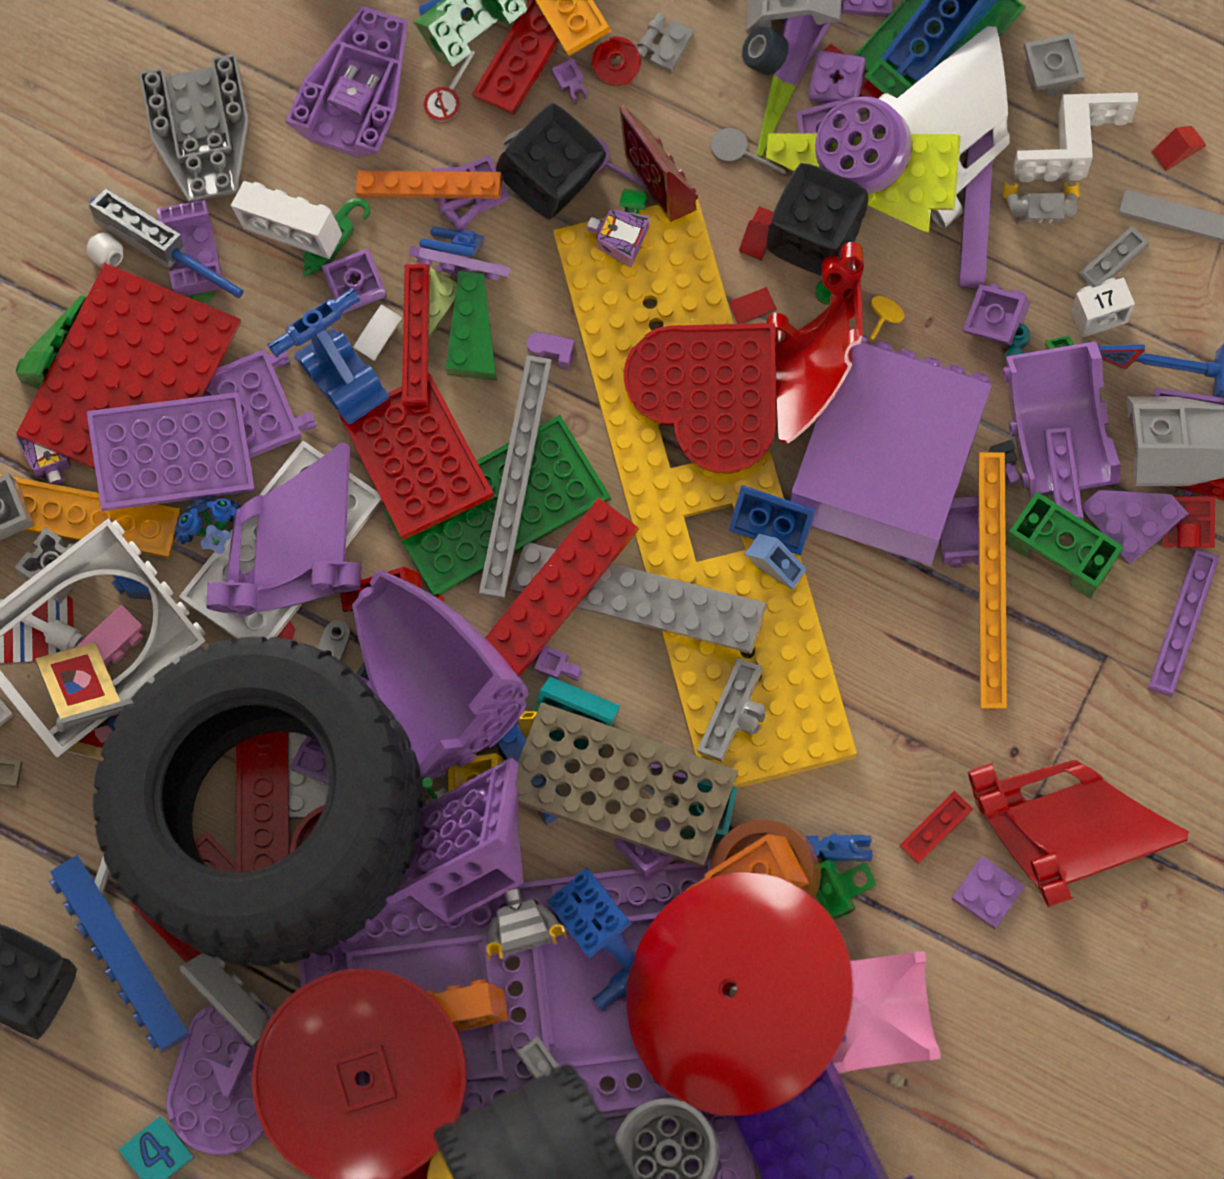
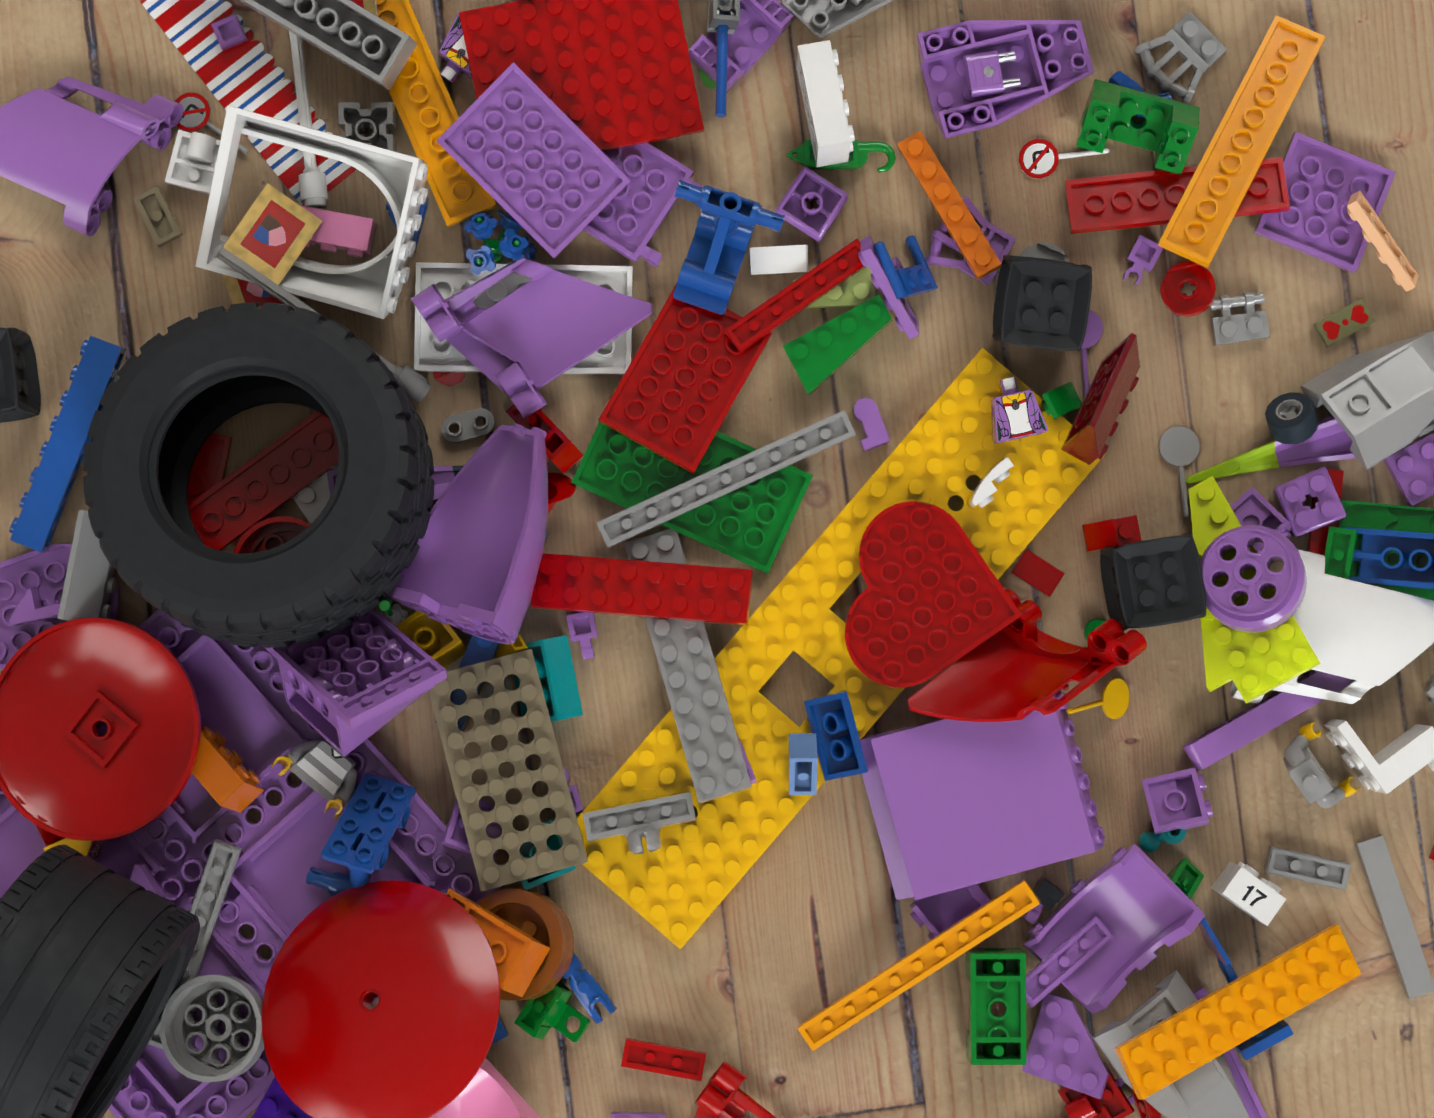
camera: 50 degrees right, 15 degrees up
(659, 288) = (985, 489): none -> white slope
(1186, 369) = (1237, 1011): none -> light orange plate

